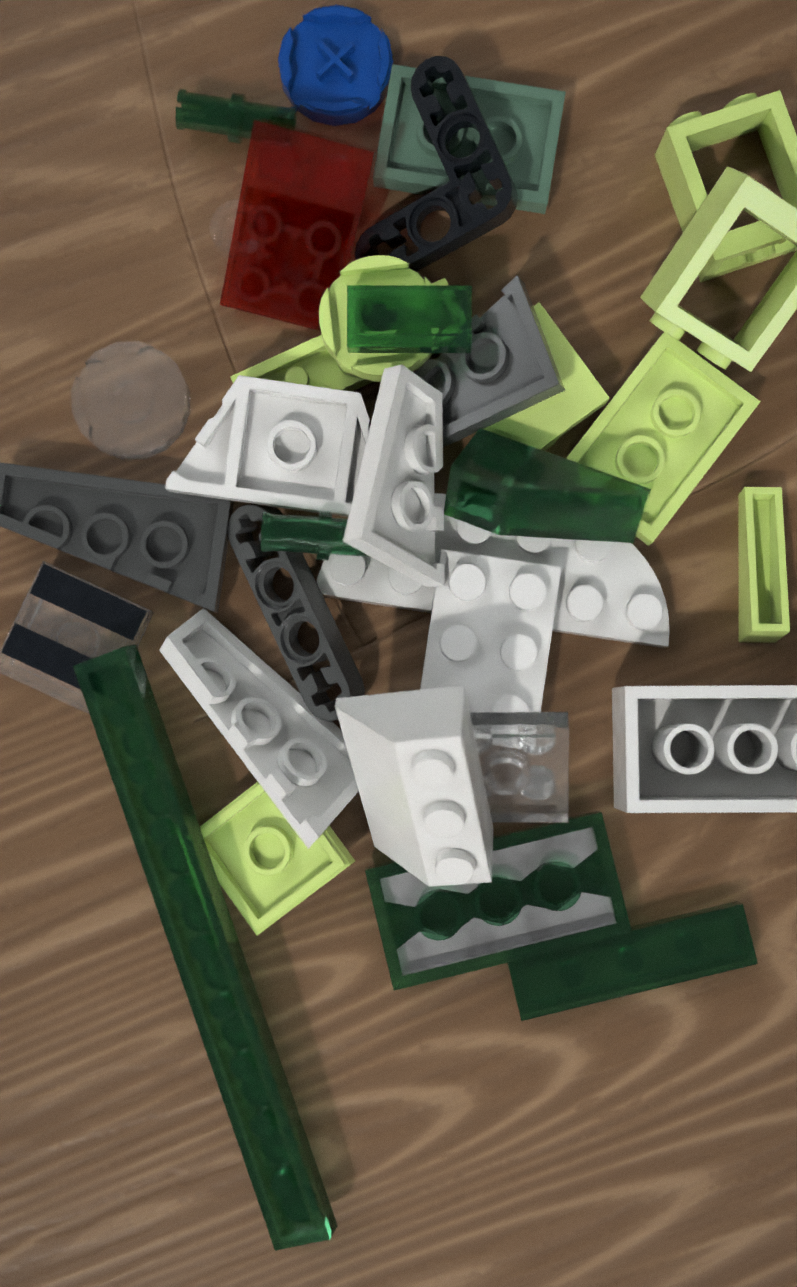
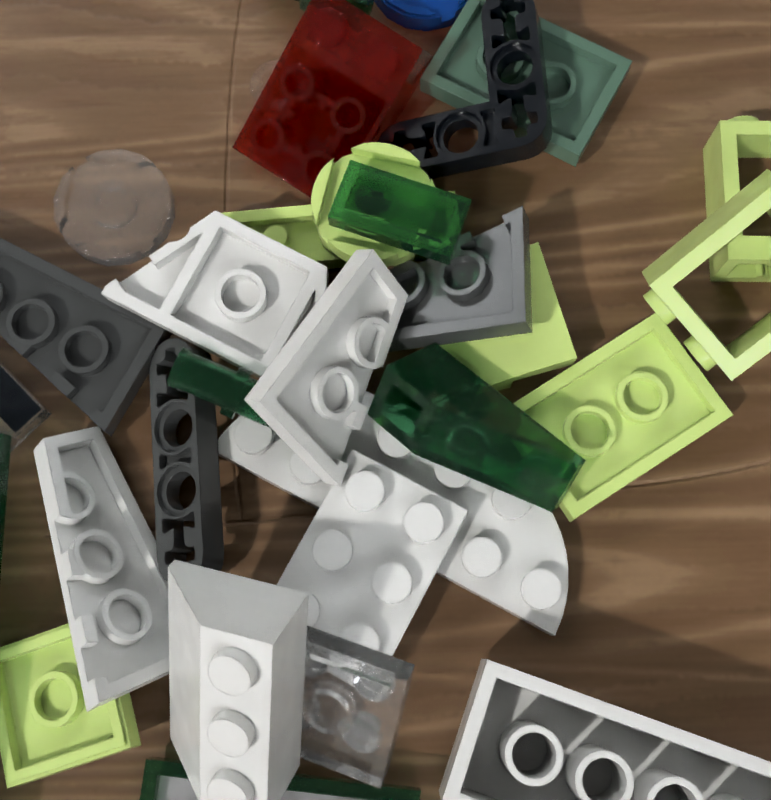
camera: 20 degrees right, 10 degrees down
(762, 566) = (683, 587): yellowish green piece -> none

